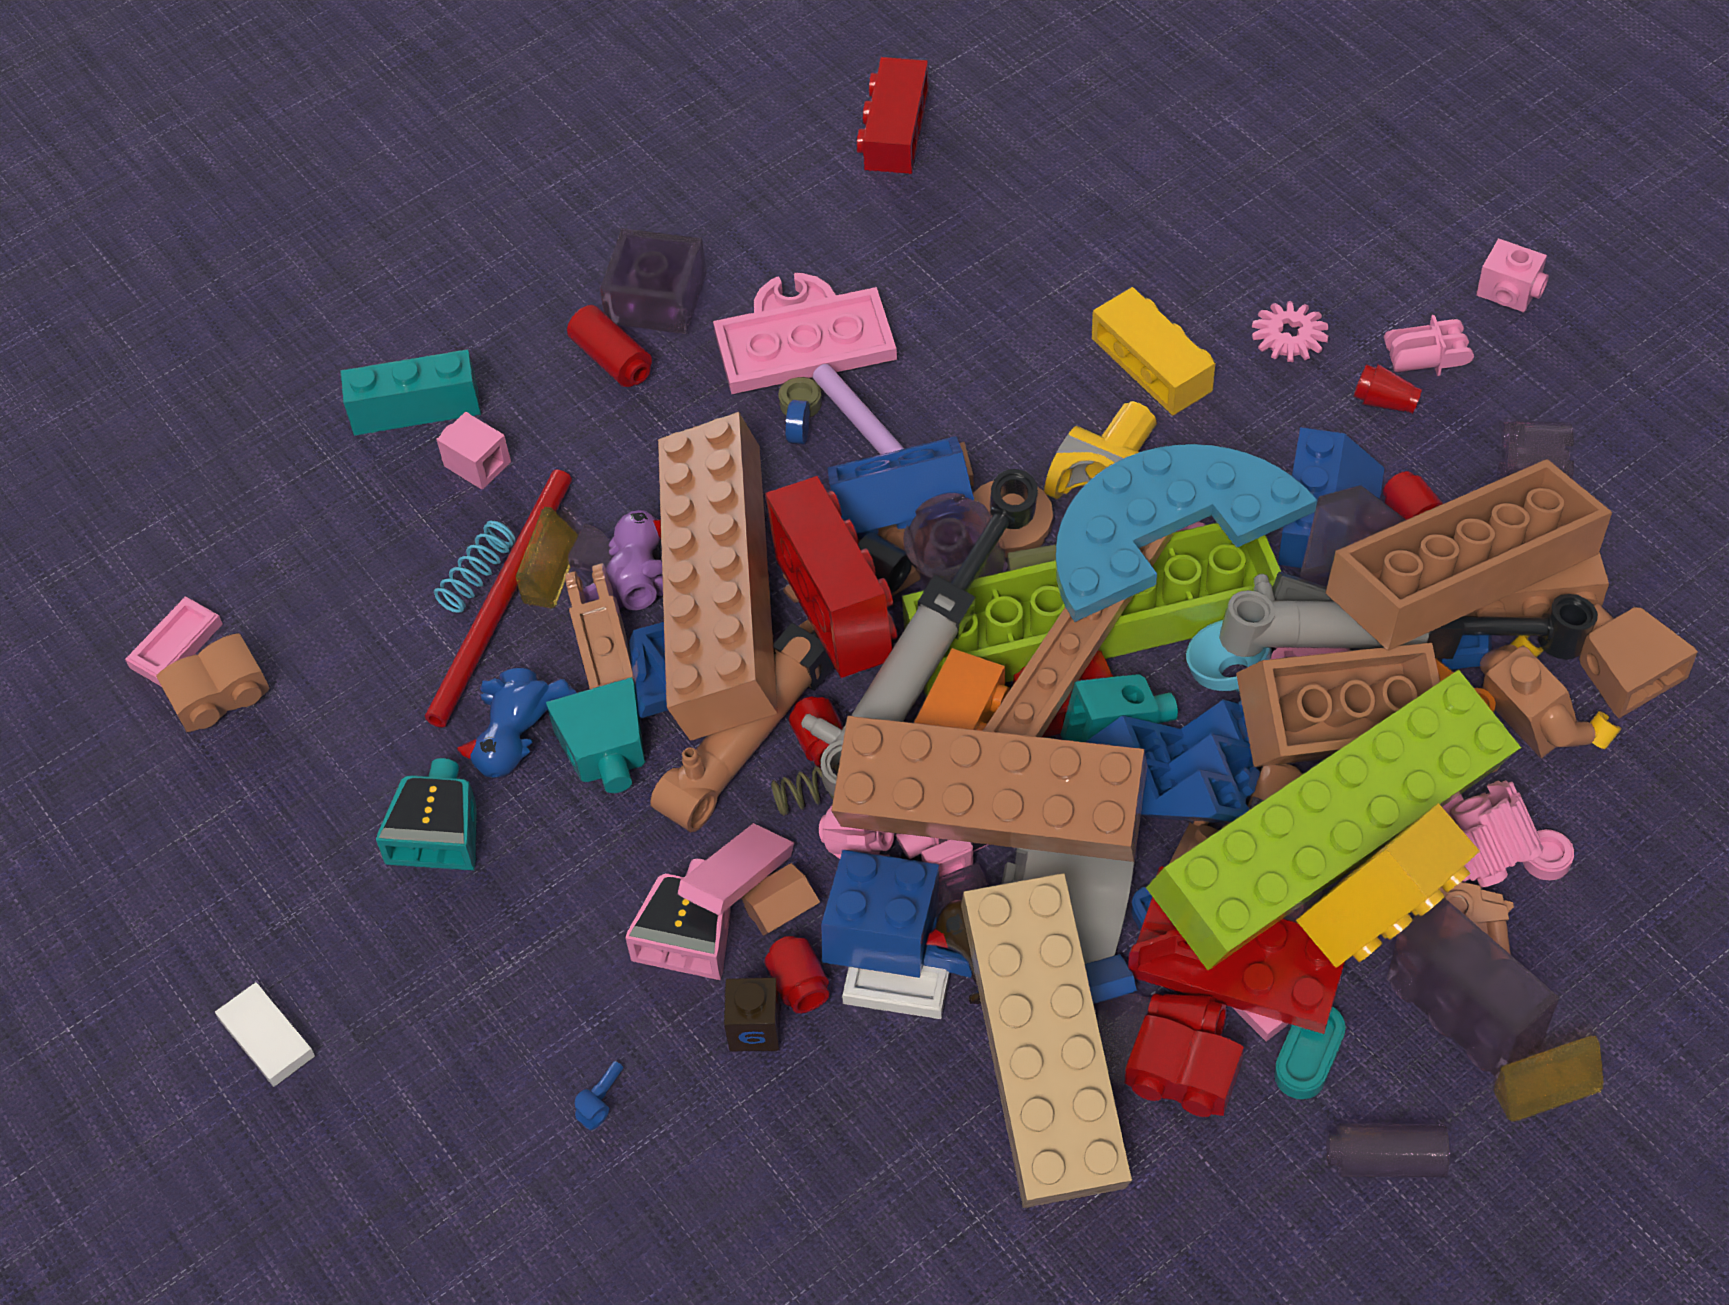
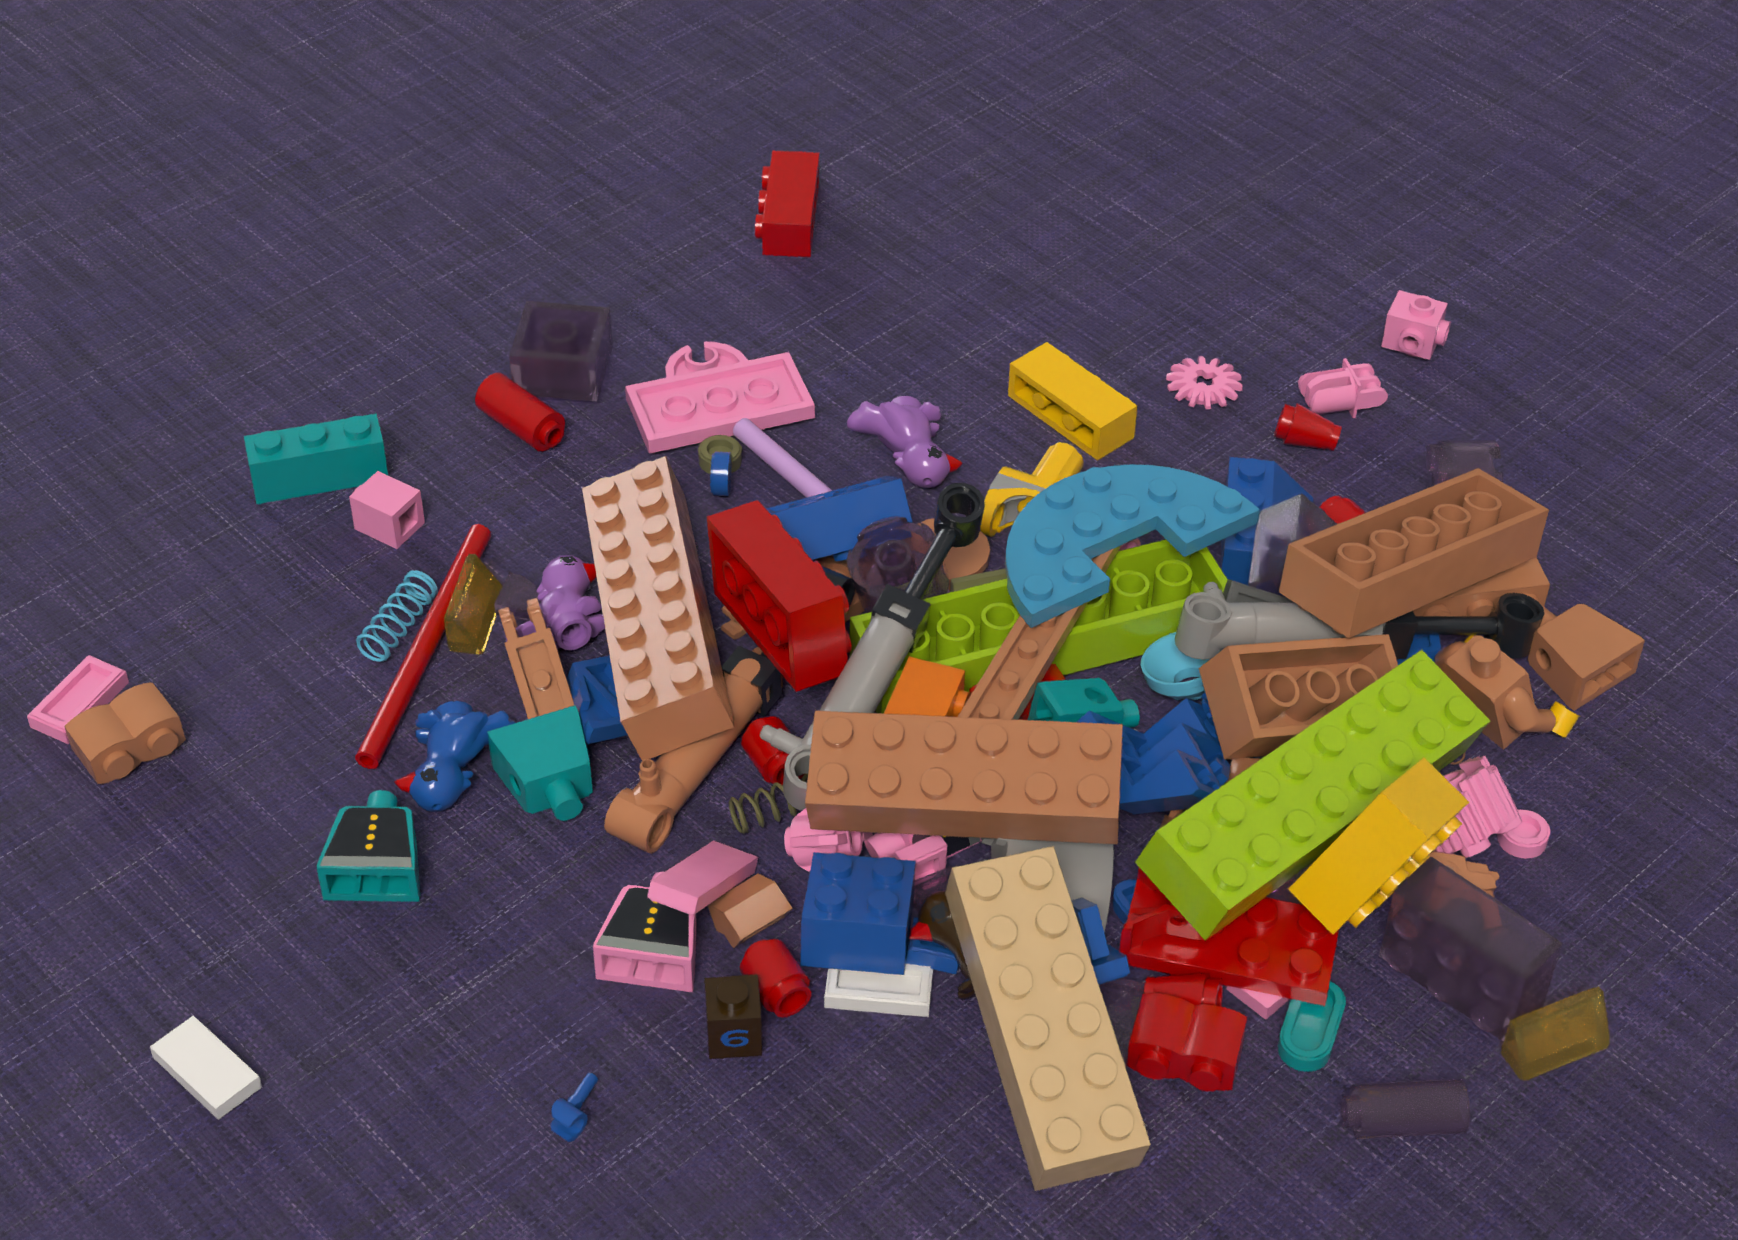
camera: 10 degrees left, 10 degrees down
(985, 379) = (906, 431): none -> medium lavender animal
(1097, 944) = (1091, 928): none -> blue tile

